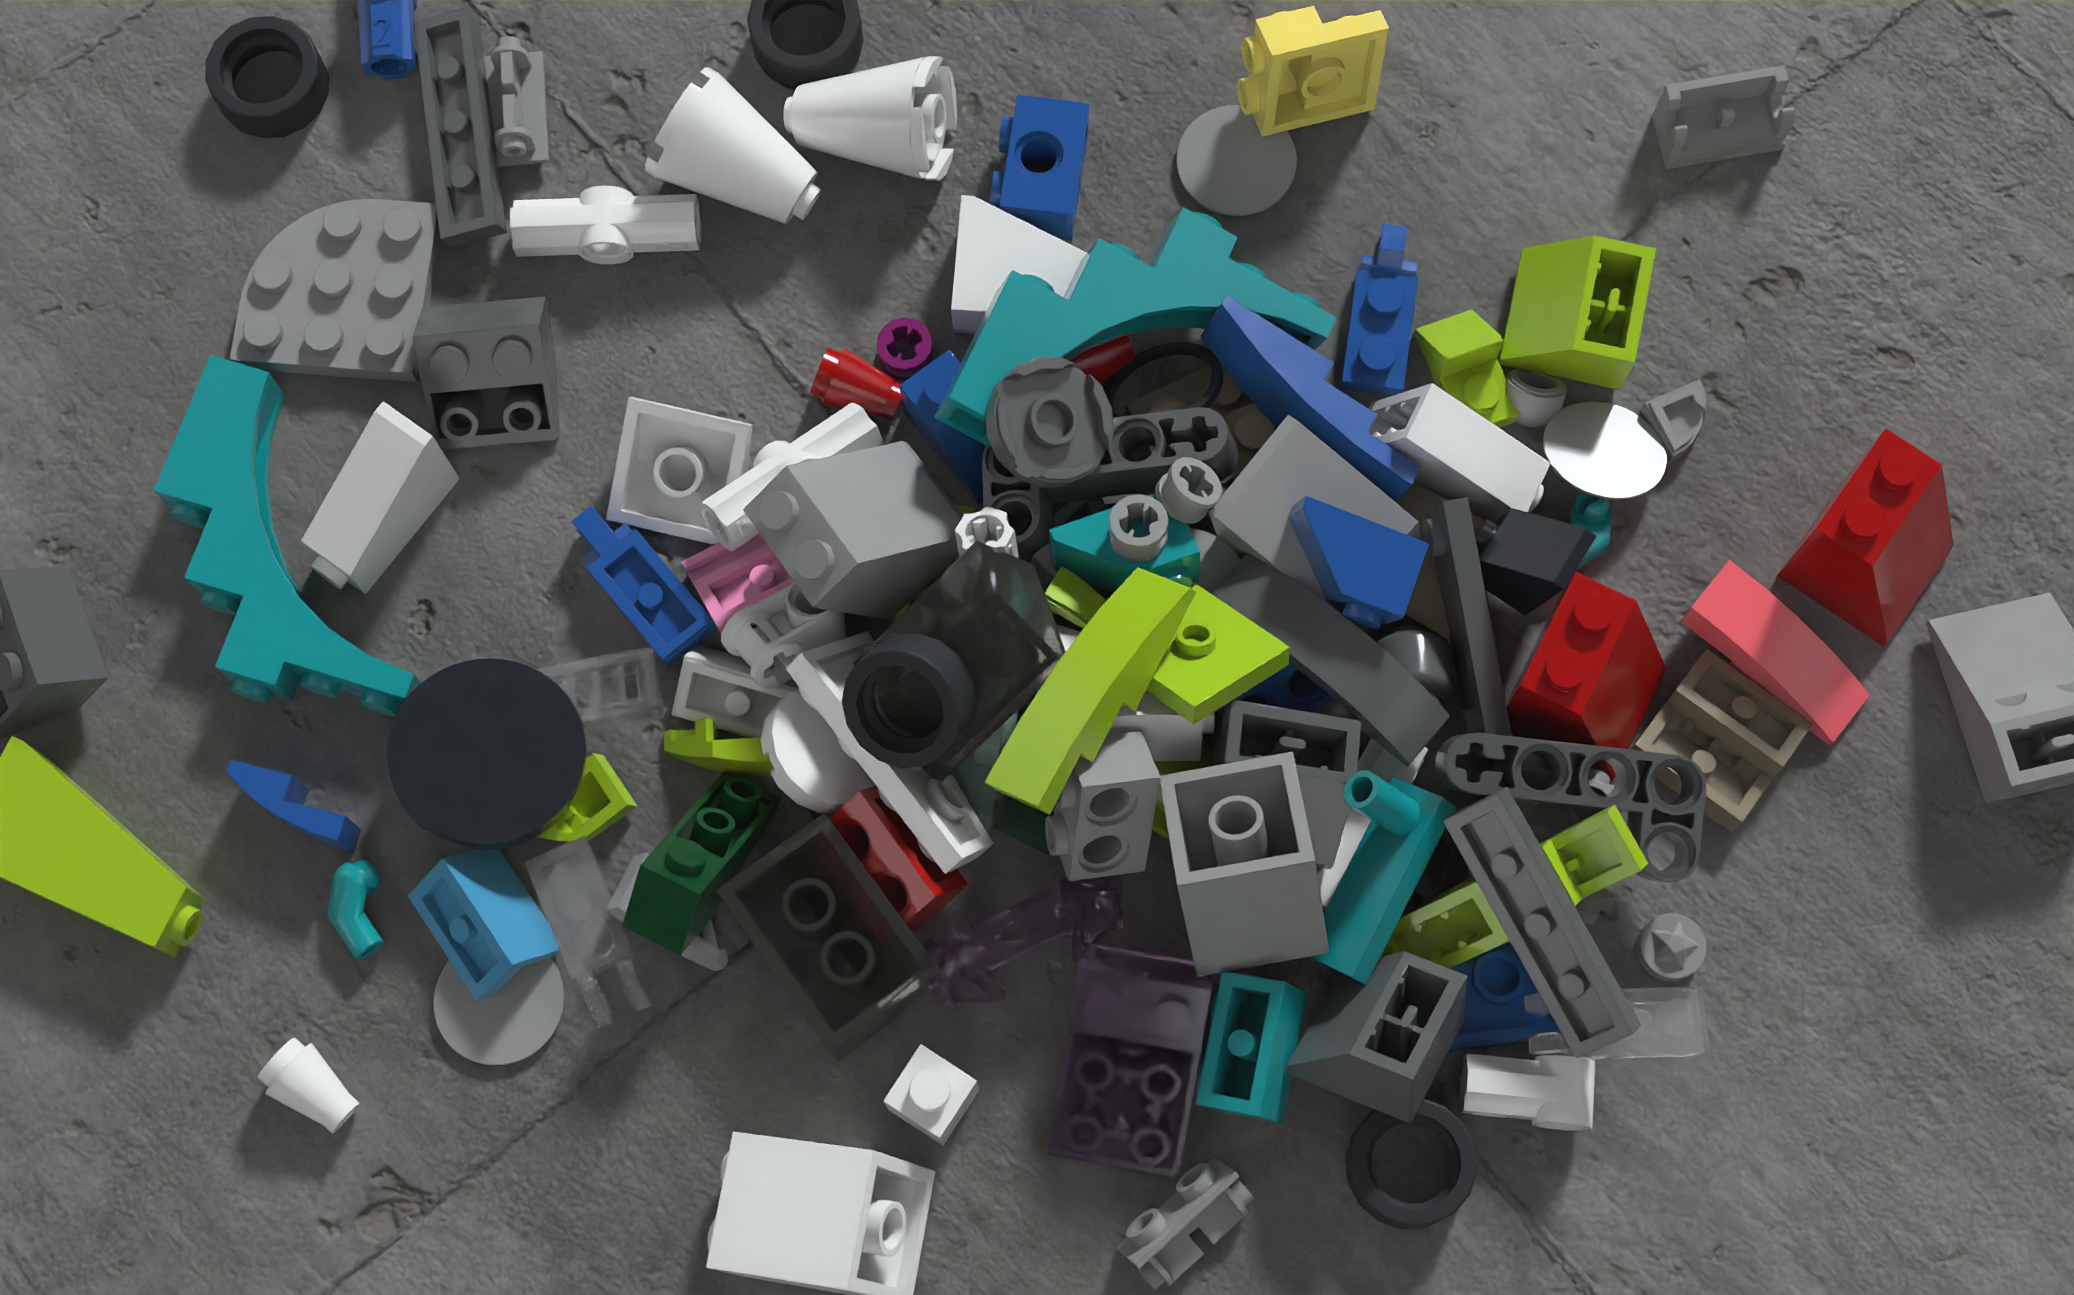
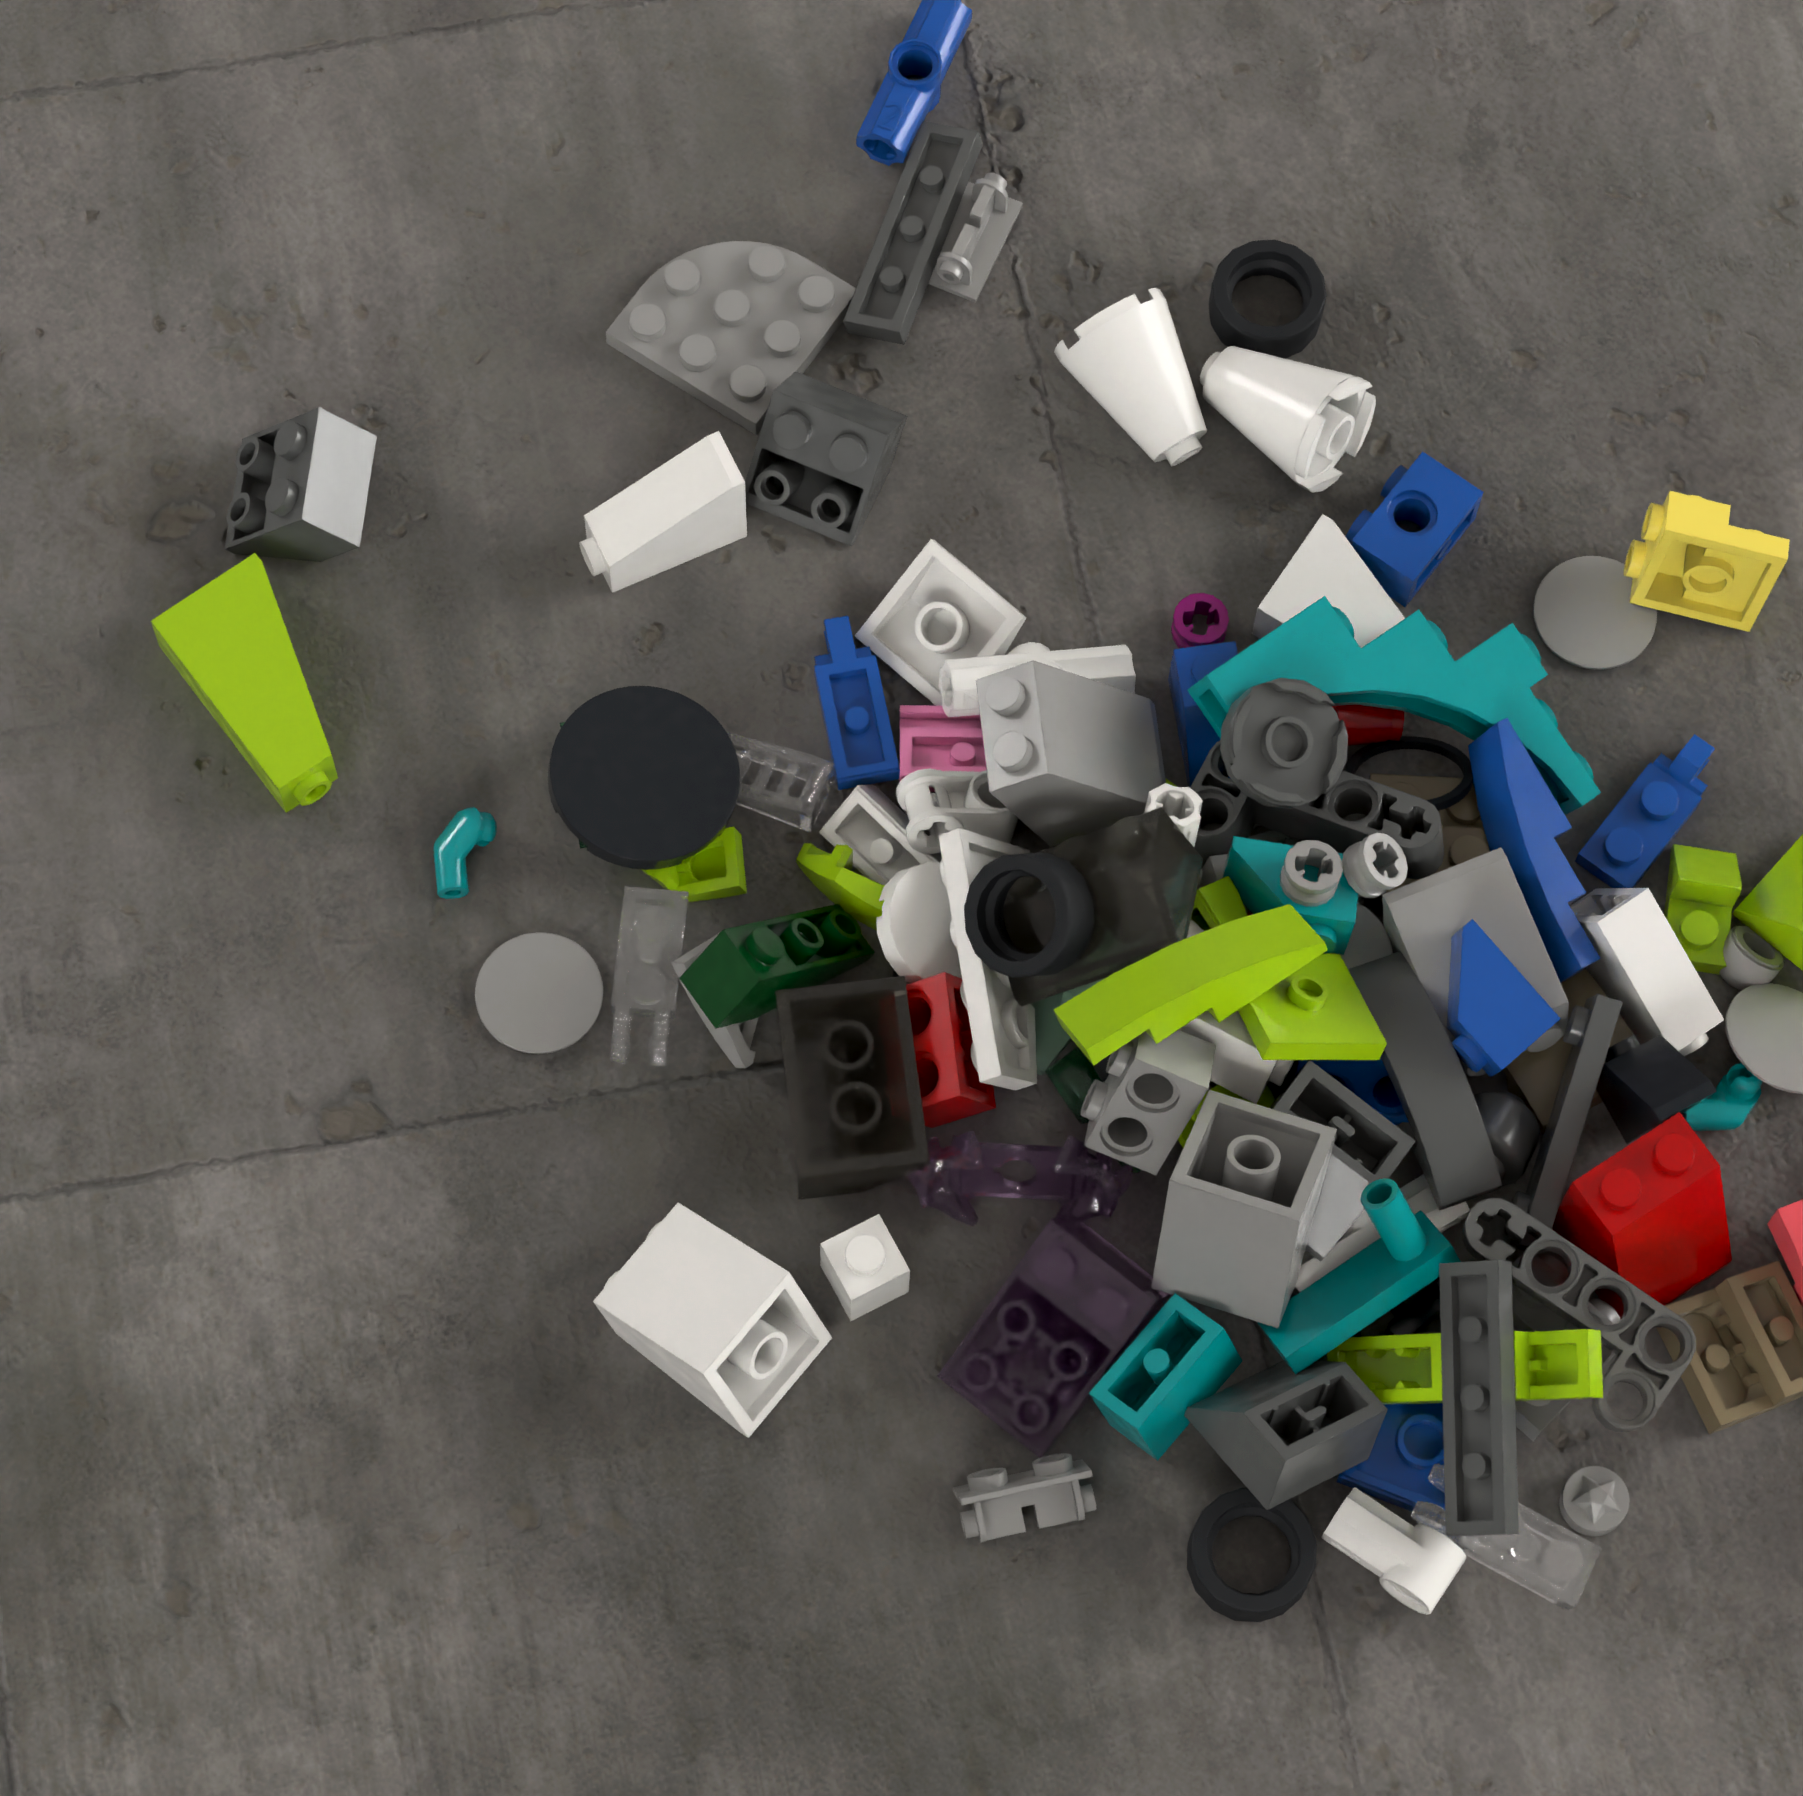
camera: 25 degrees right, 5 degrees down
(220, 484) = (539, 435): teal arch -> none
(252, 39) = (773, 65): black tyre -> none
(285, 799) = (450, 728): blue slope -> none
(308, 1085) = (341, 974): white cone -> none
(483, 919) = (563, 916): dark azure panel -> none
(605, 225) = (995, 382): white piece -> none
(850, 379) = (1134, 623): red cone -> none

